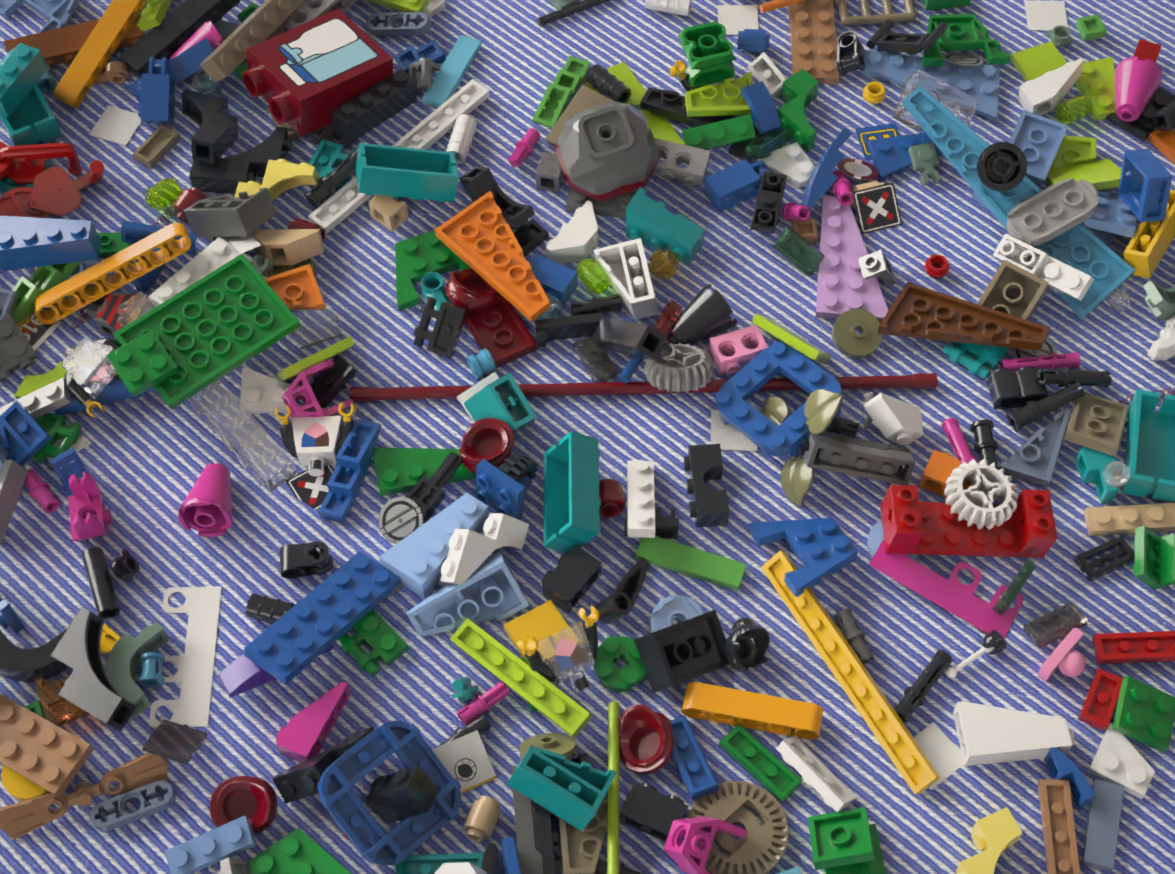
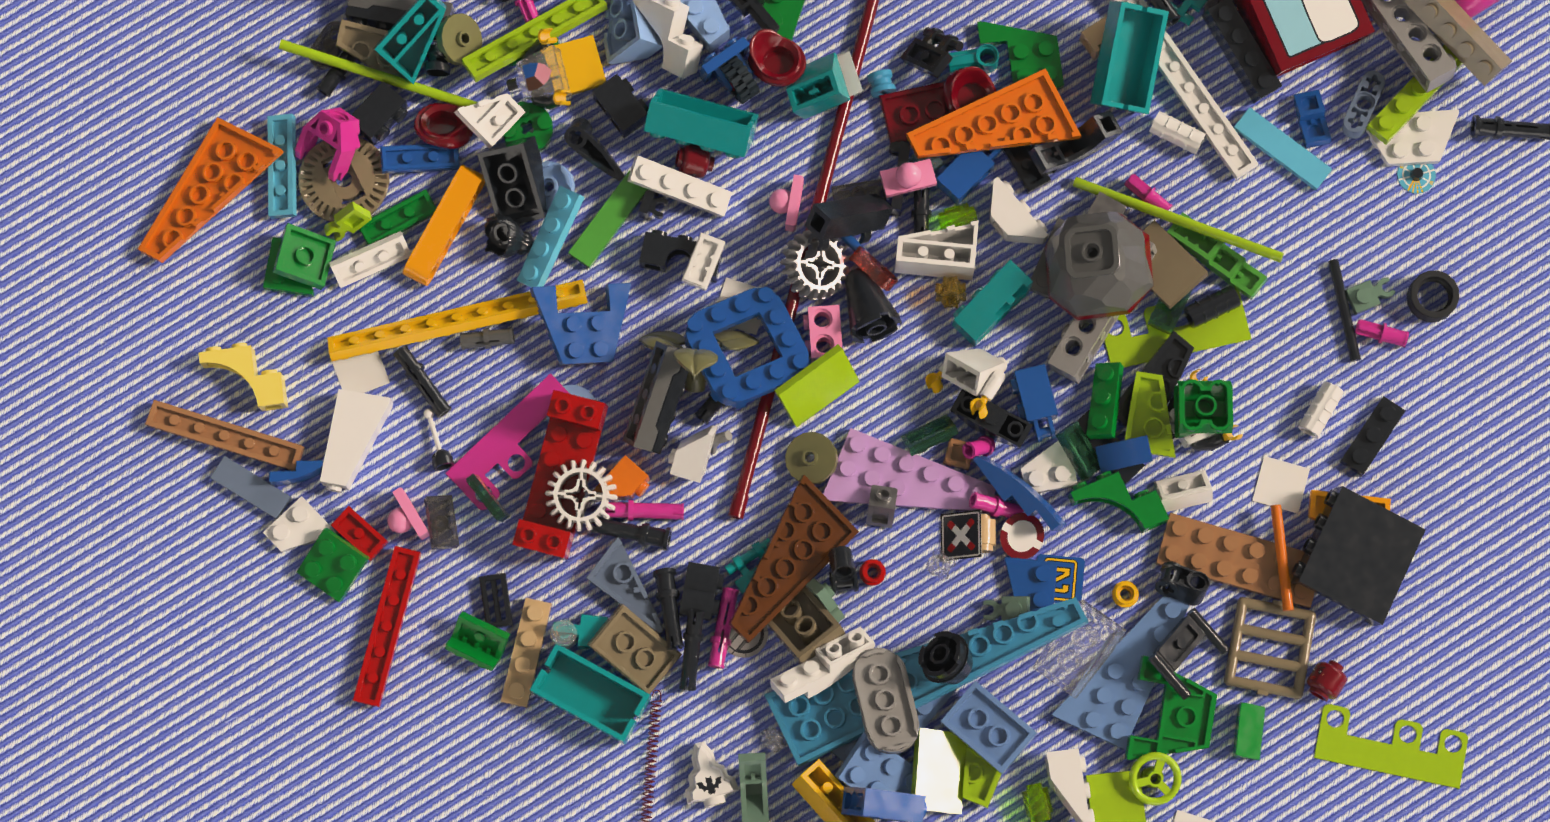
camera: 105 degrees right, 20 degrees up
(422, 72) = (1280, 109): flat silver bracket -> none
(541, 119) = (1180, 220): none -> lime piece
(571, 310) = (908, 178): none -> bright pink tile
(622, 408) = (788, 202): none -> bright pink tile
(628, 684) = (491, 117): none -> white wing
(712, 451) = (703, 261): none -> white plate
(733, 221) = (972, 371): none -> white torso
(734, 599) = (550, 238): none -> medium azure plate
(753, 40) = (1235, 484): blue brick -> none
(781, 802) = (348, 219): none -> lime plate
(913, 216) = (933, 564): none -> clear plate
(951, 280) = (842, 570): none -> black piece
(963, 59) = (1143, 709): light grey sticker -> none
(978, 287) = (824, 595): none -> sand green plate
(1014, 42) = (1147, 772): none -> lime piece

